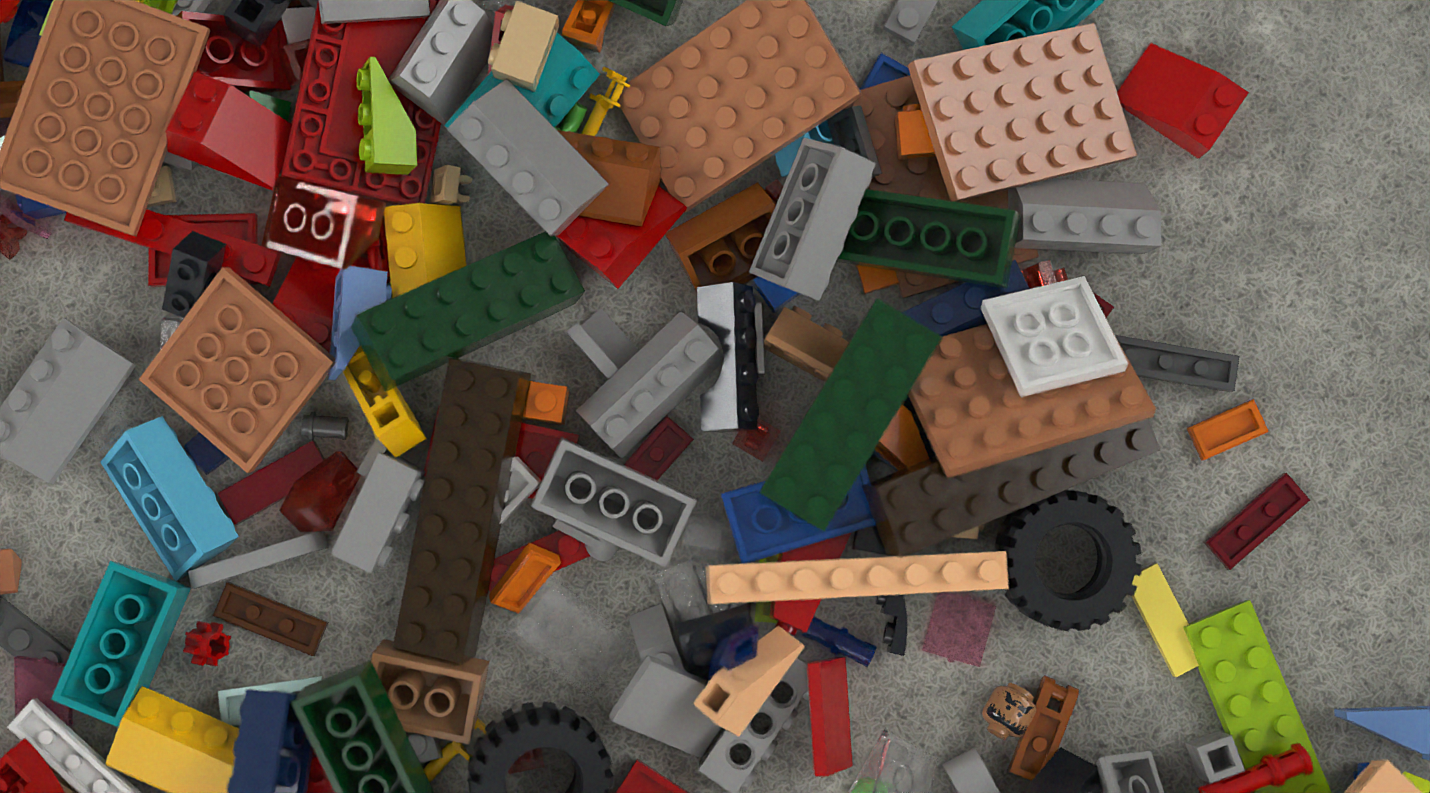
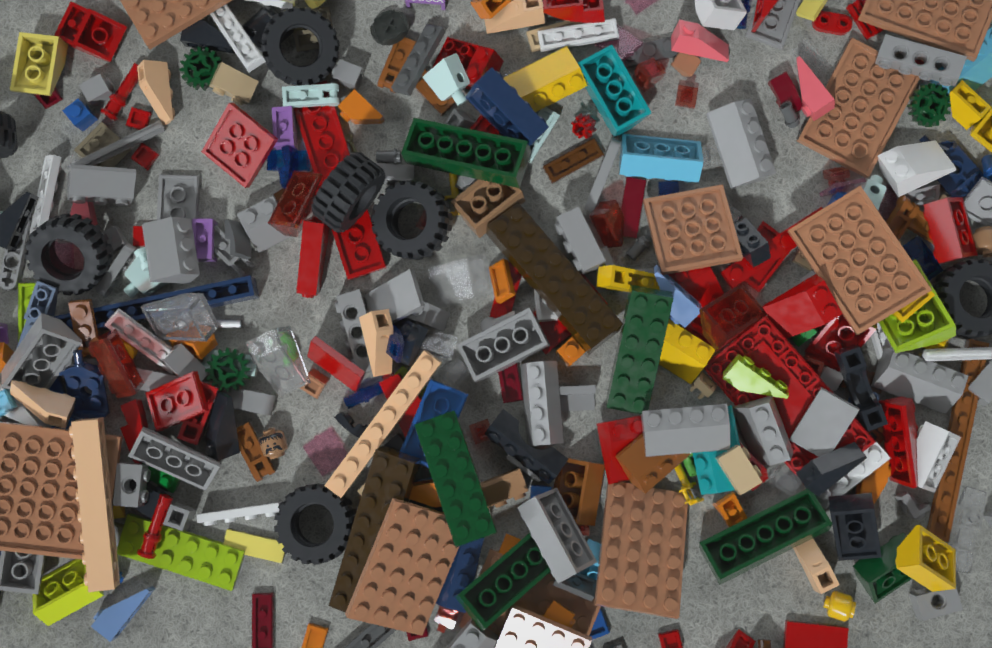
camera: 130 degrees right, 0 degrees up
(49, 532) = (686, 96): none -> clear red tile
(55, 612) = (649, 73): none -> clear red slope
(875, 718) = (317, 384): none -> nougat slope
(1053, 336) = (416, 599): white plate -> none
(1151, 686) = (231, 515): none -> white plate

